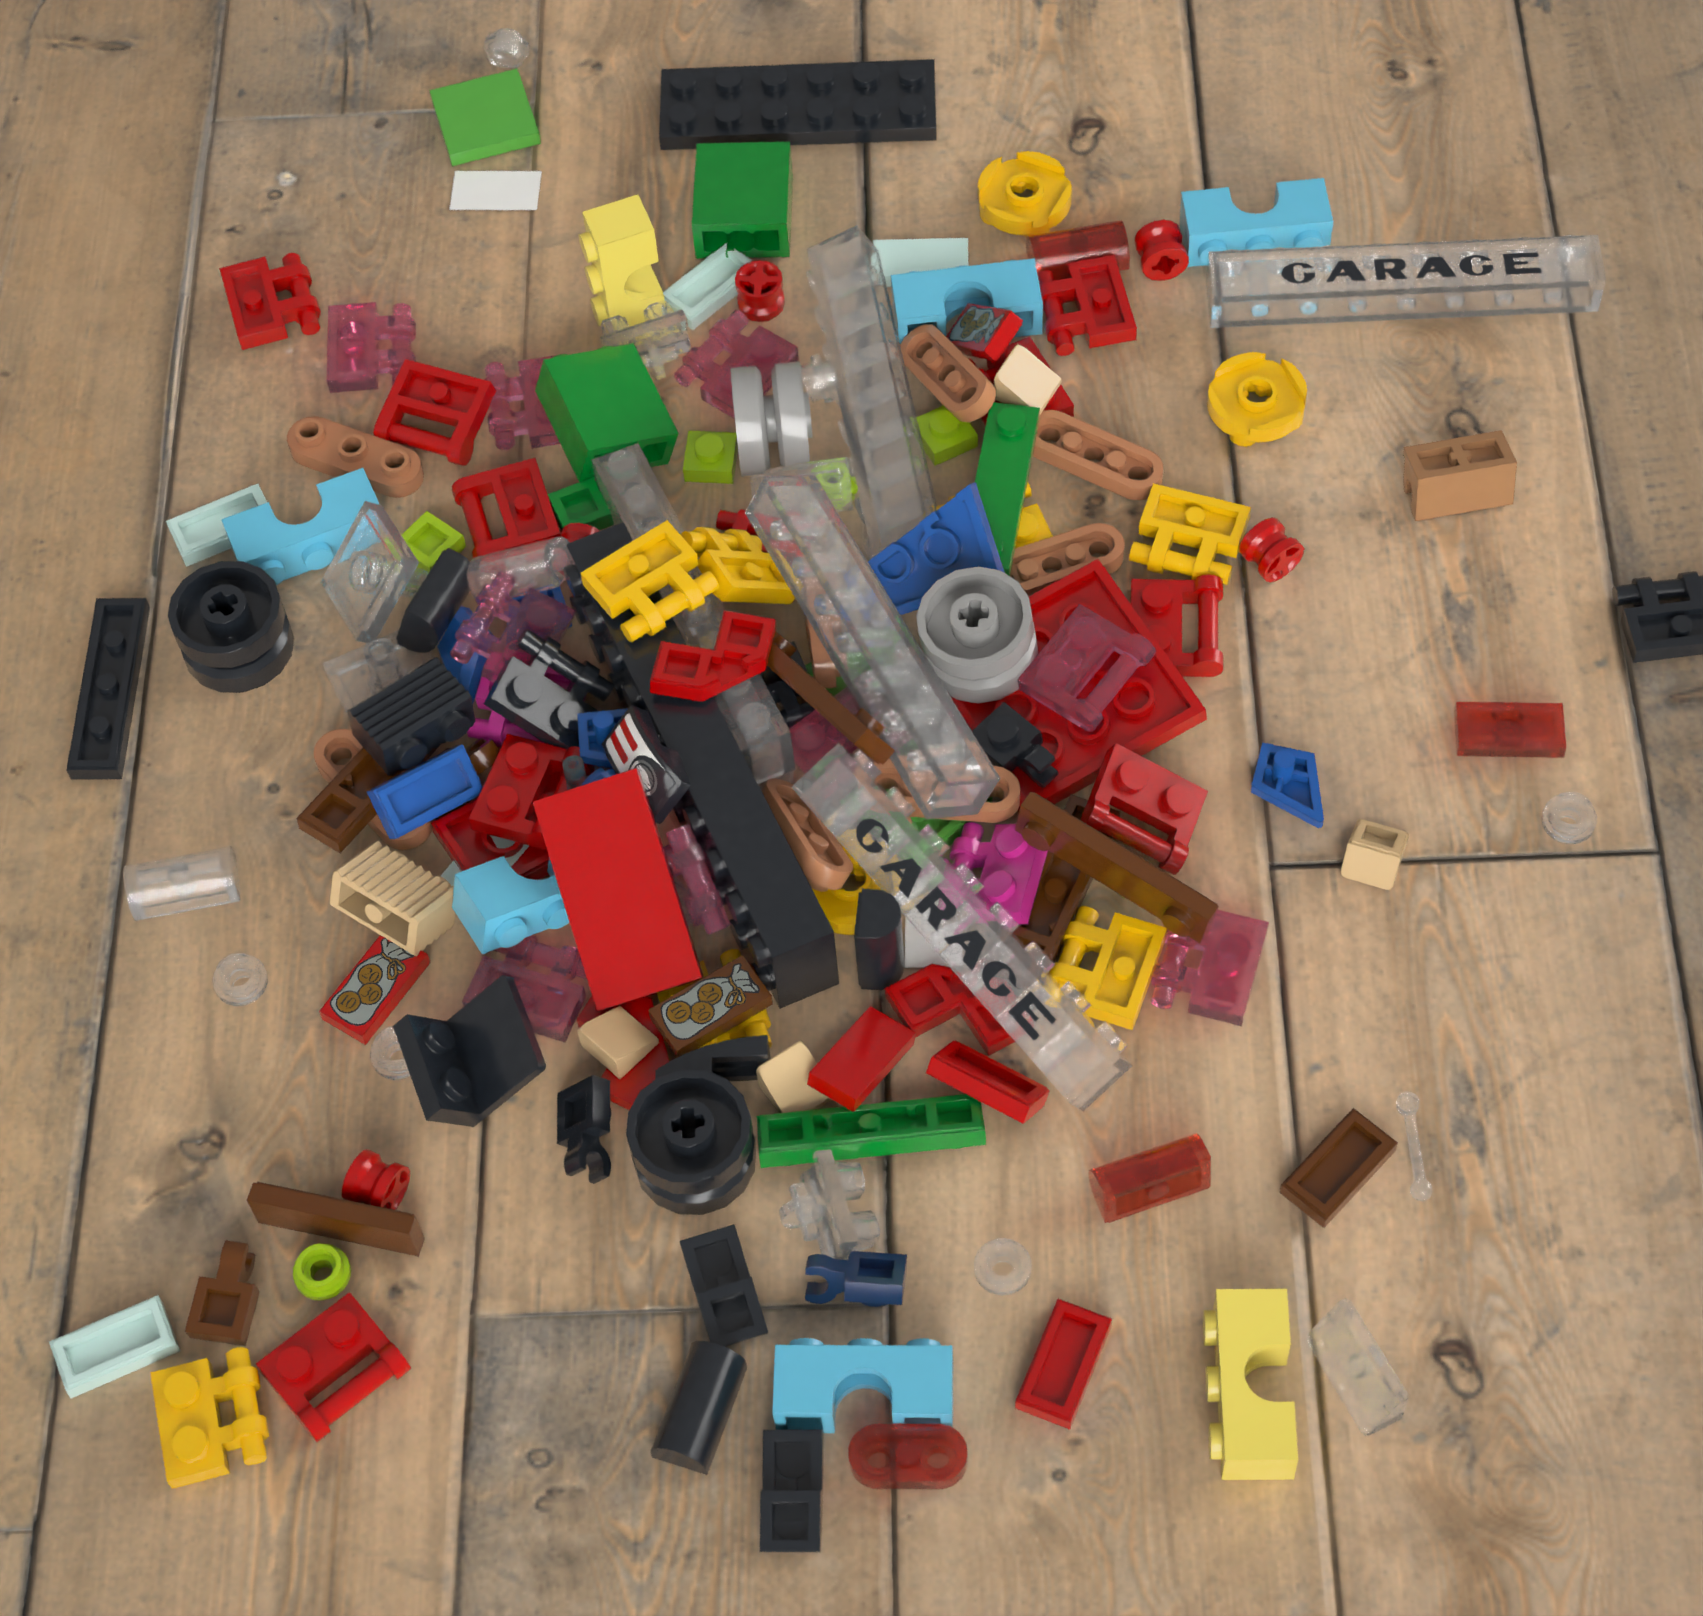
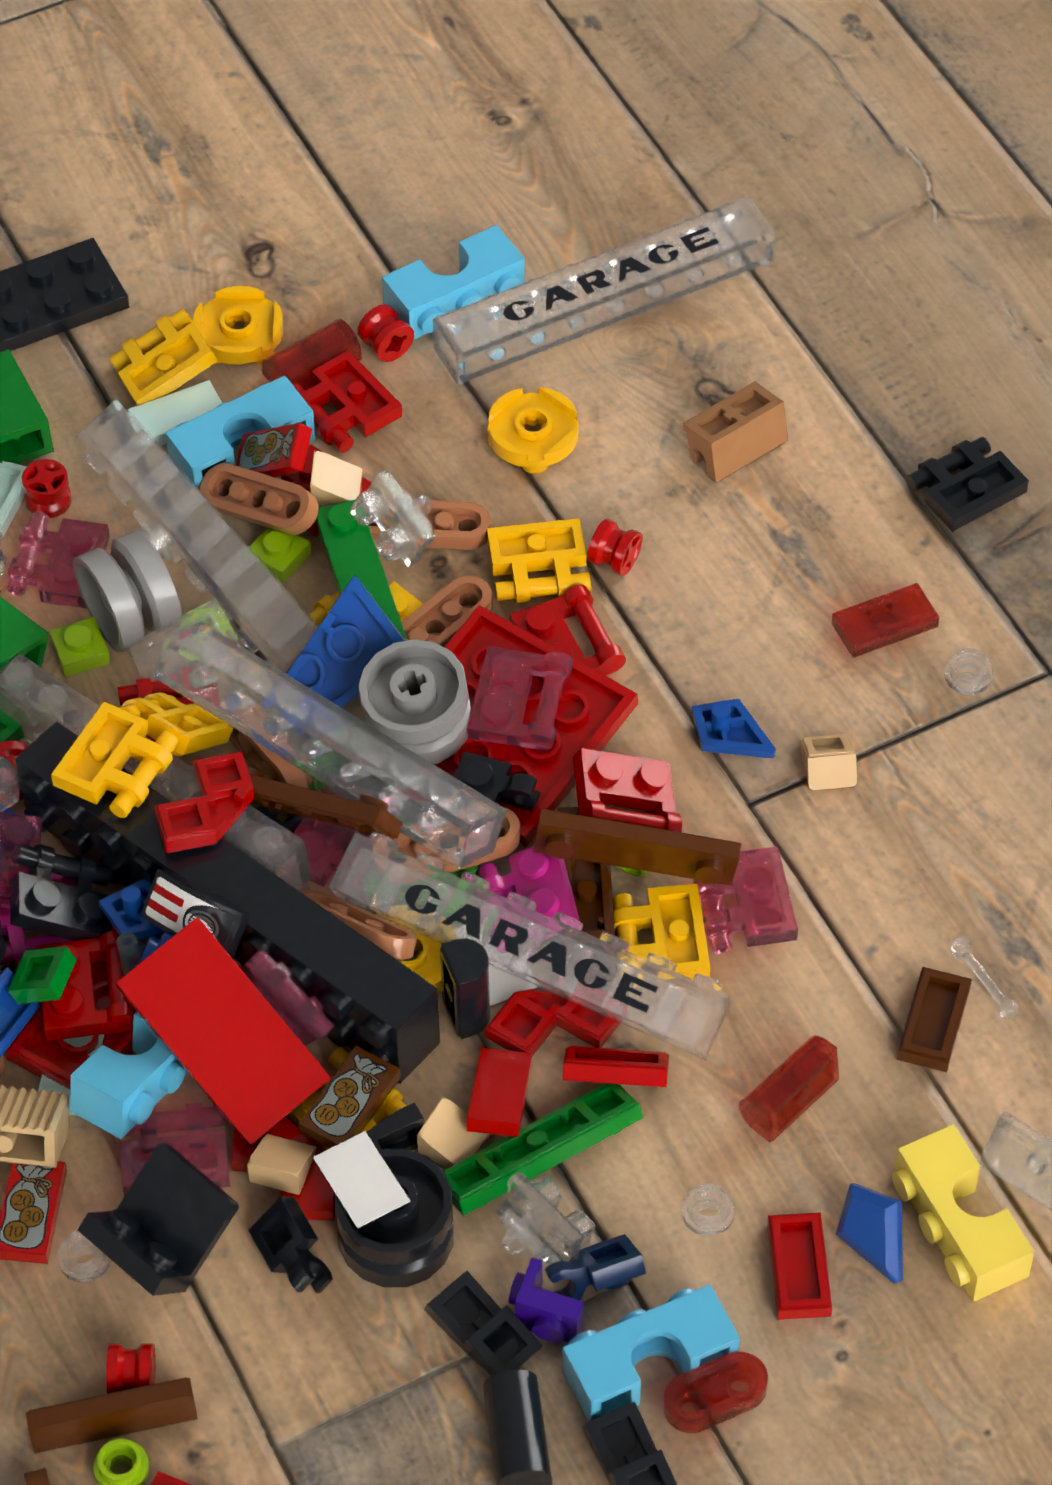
camera: 30 degrees left, 5 degrees down
(487, 765) = (42, 975): none -> green plate
(667, 1092) = (361, 1179): none -> white sticker
(787, 1304) = (544, 1312): none -> dark purple bracket
(933, 200) = (163, 357): none -> yellow plate
(1068, 440) = (398, 516): none -> clear hips
(1155, 1360) = (874, 1229): none -> blue piece

